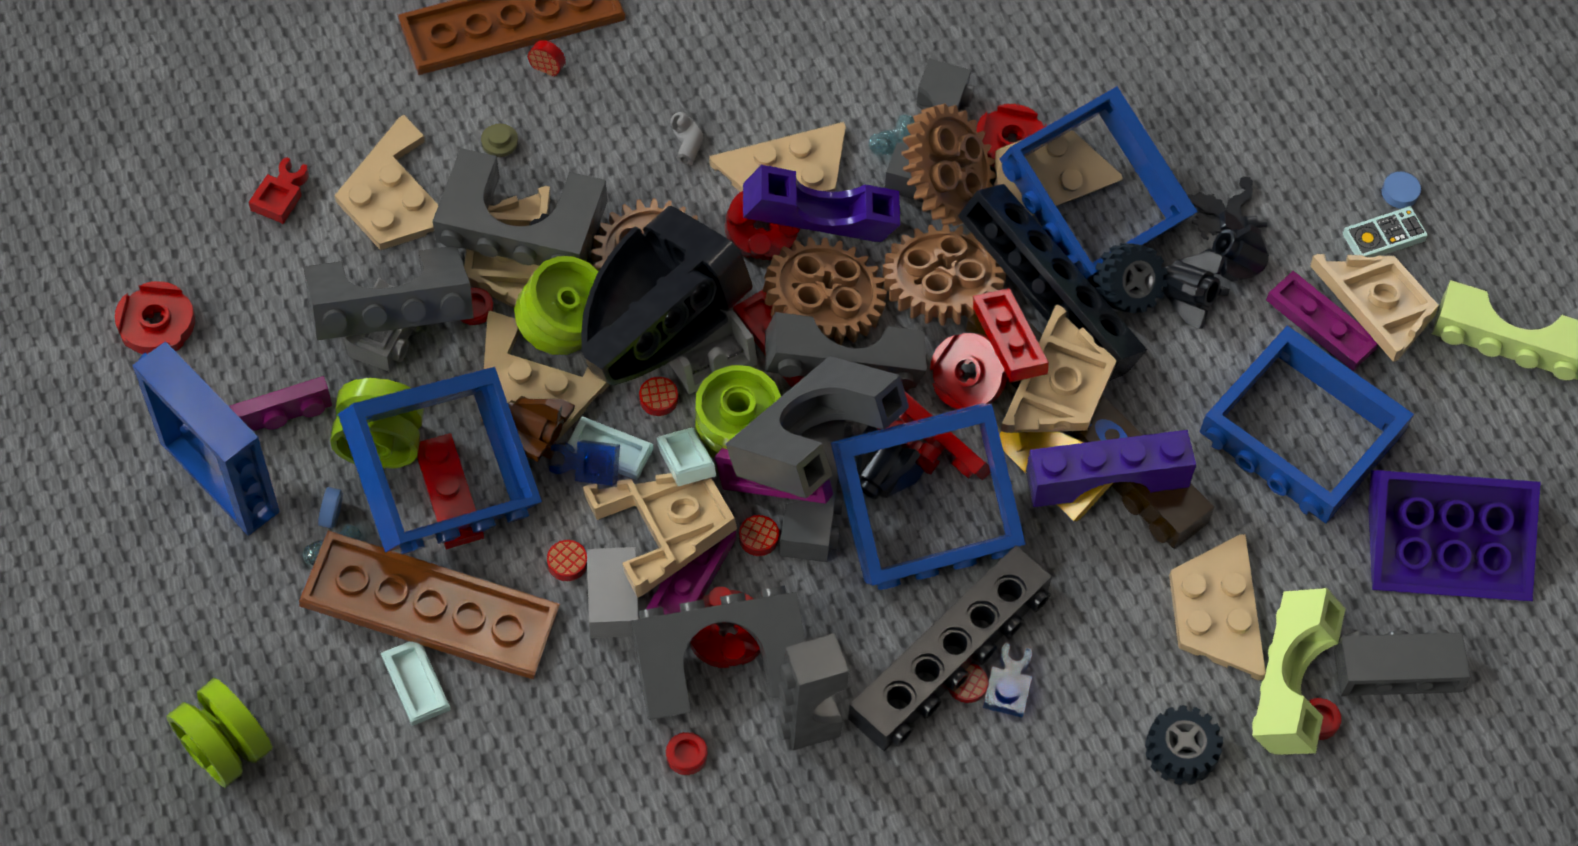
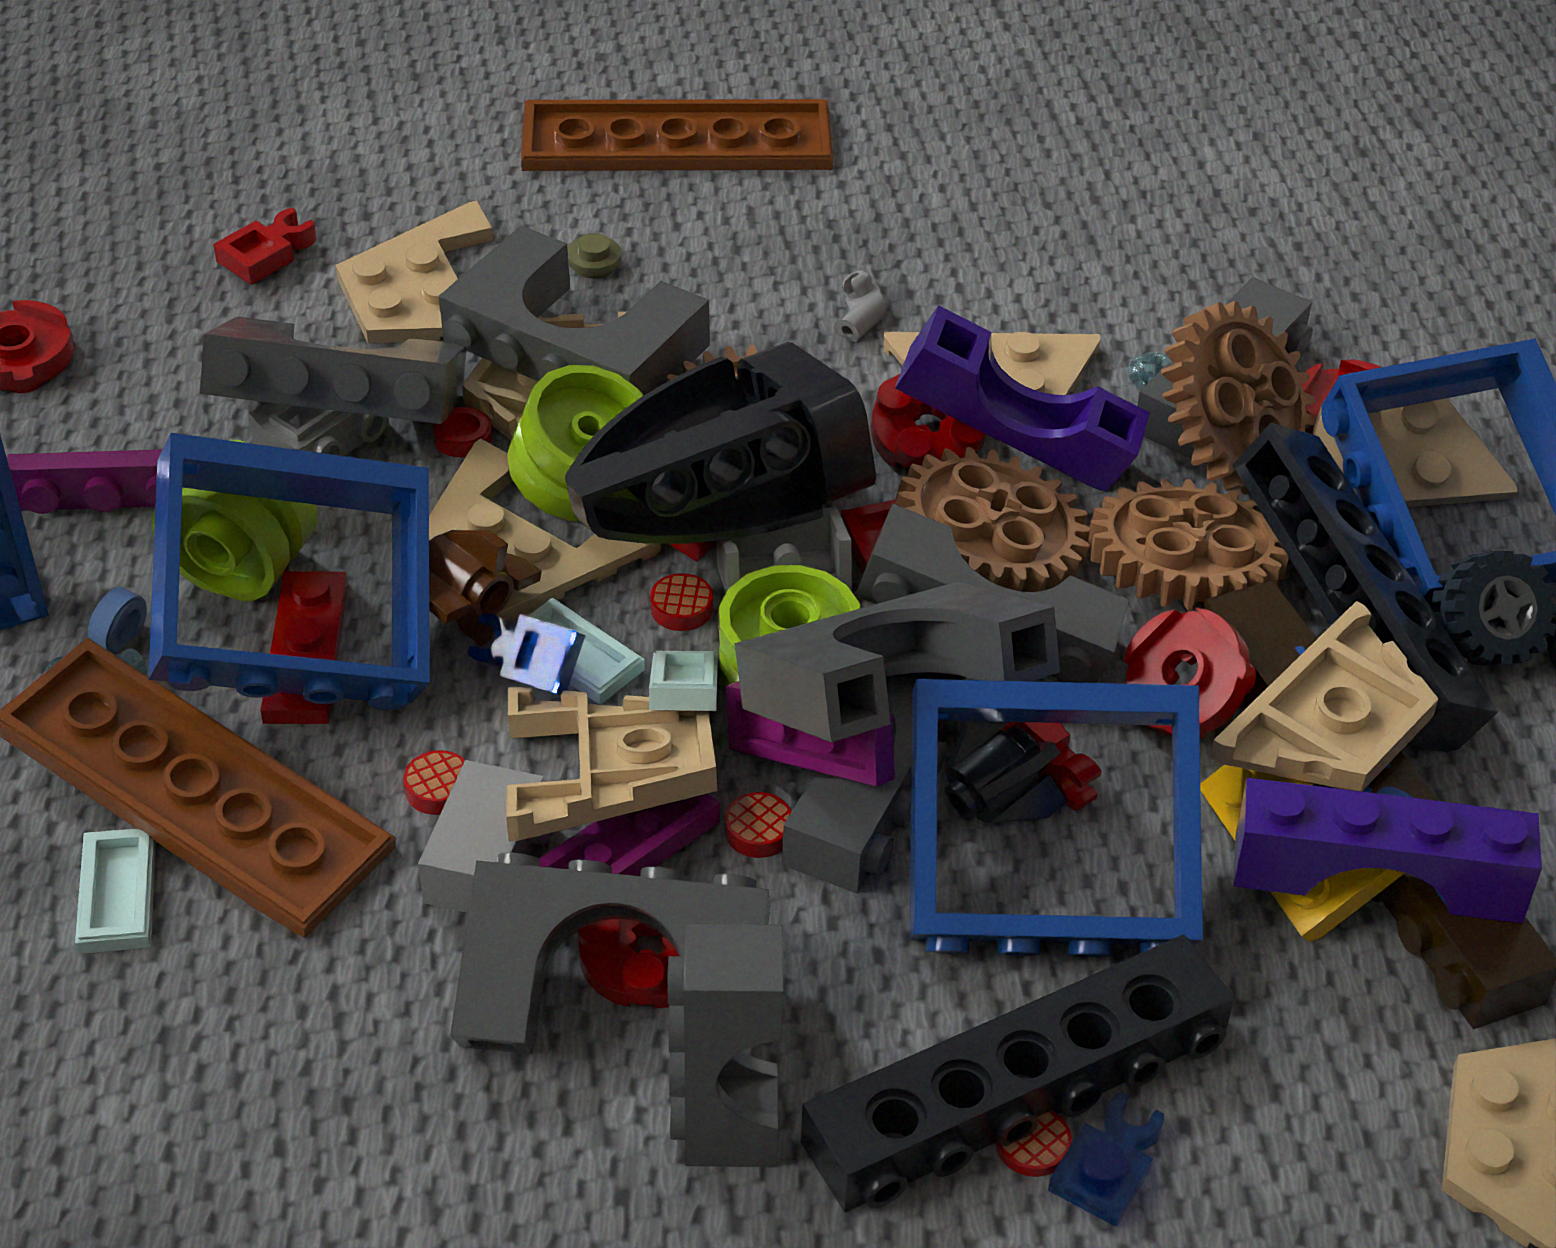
camera: 20 degrees right, 15 degrees down
(546, 57) = (701, 179): red tile -> none
(686, 753) = (498, 1117): red tile -> none
(966, 460) = (1142, 797): red plate -> none
(1010, 335) = (1266, 622): red plate -> none

